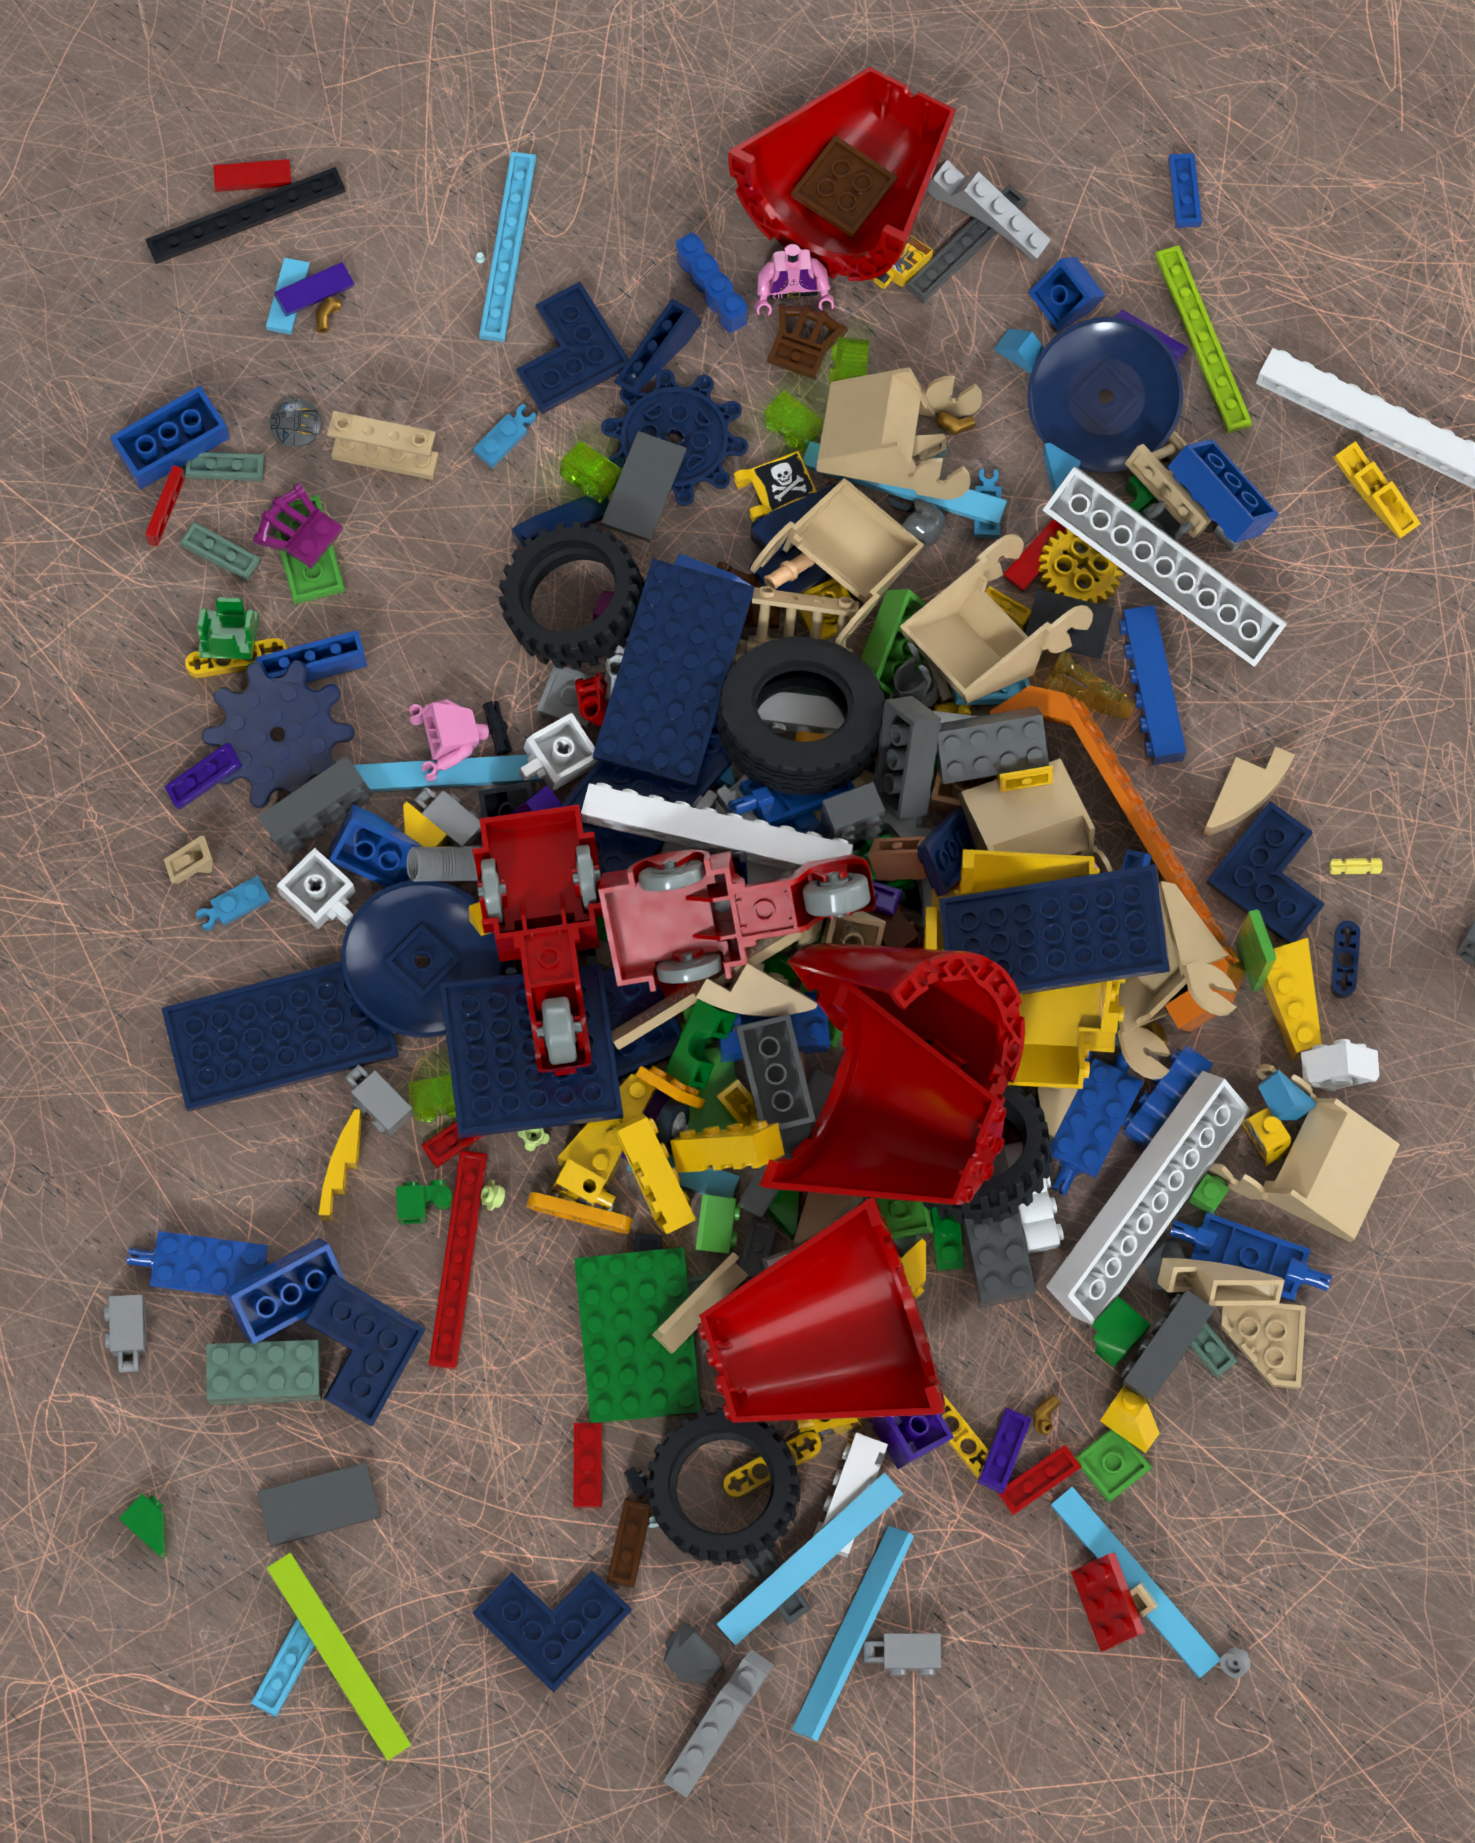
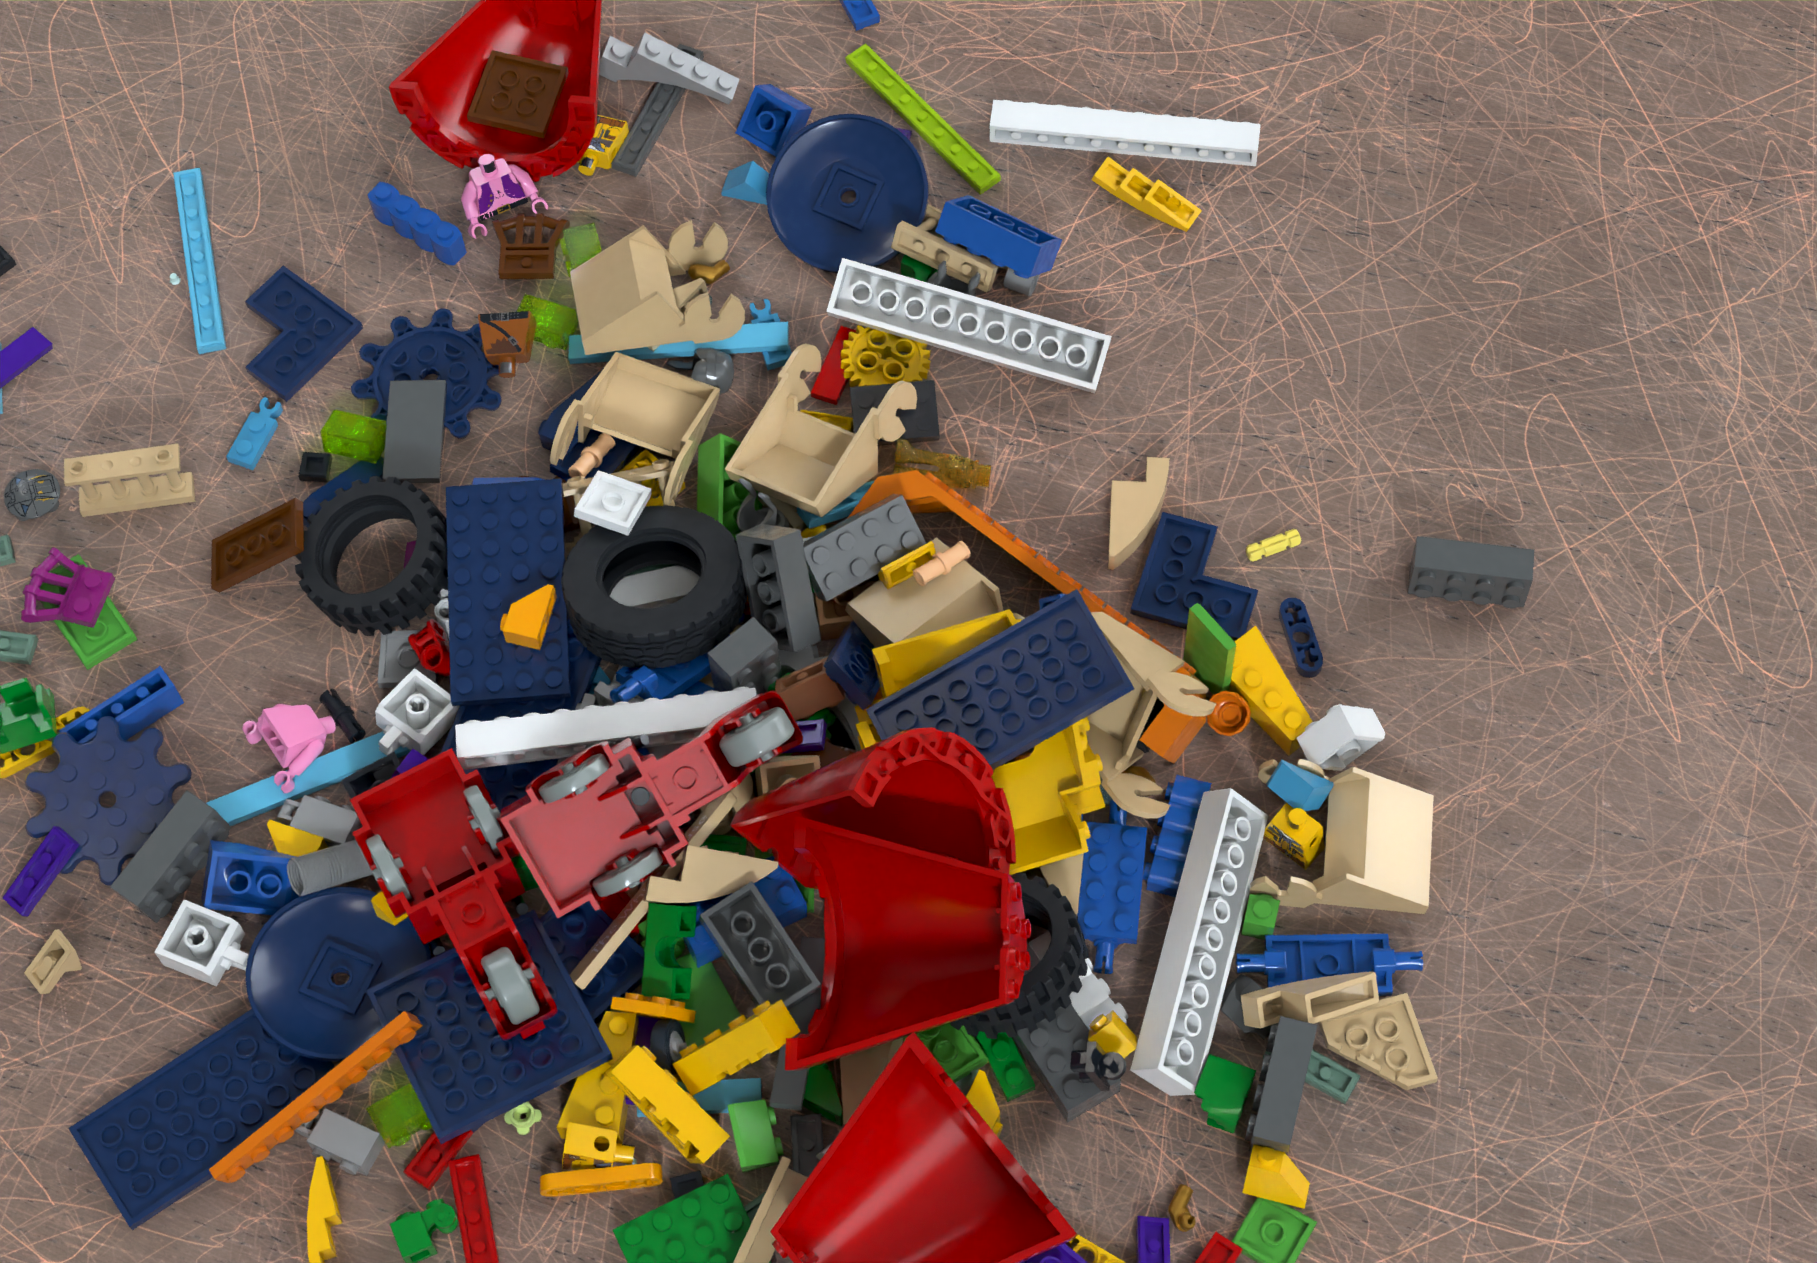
camera: 15 degrees left, 10 degrees down
(235, 903) = (117, 991): dark azure plate -> none
(329, 305) = (28, 380): pearl gold arm -> none
(380, 1057) = (324, 1091): none -> orange plate
(474, 547) = (257, 545): none -> reddish brown plate
(492, 1195) = (500, 1196): yellowish green plate -> none
(547, 486) = (315, 467): none -> black tile
(659, 346) = (387, 291): dark blue slope -> none
(683, 708) = (529, 618): none -> light orange slope
(738, 1102) = (730, 998): yellow slope -> none
(753, 430) = (507, 339): none -> dark orange torso
(776, 483) = (548, 384): flag -> none
(791, 627) = (612, 502): none -> white plate
(1019, 1275) = (1097, 1066): none -> black hips
(1041, 1254) = (1112, 1034): none -> yellow brick
(1054, 787) = (941, 563): none -> light nougat pin
(1058, 465) = (823, 273): dark azure slope -> none
(1153, 685) = (1001, 444): blue brick -> none
(1253, 1006) = (1230, 713): none -> orange hair

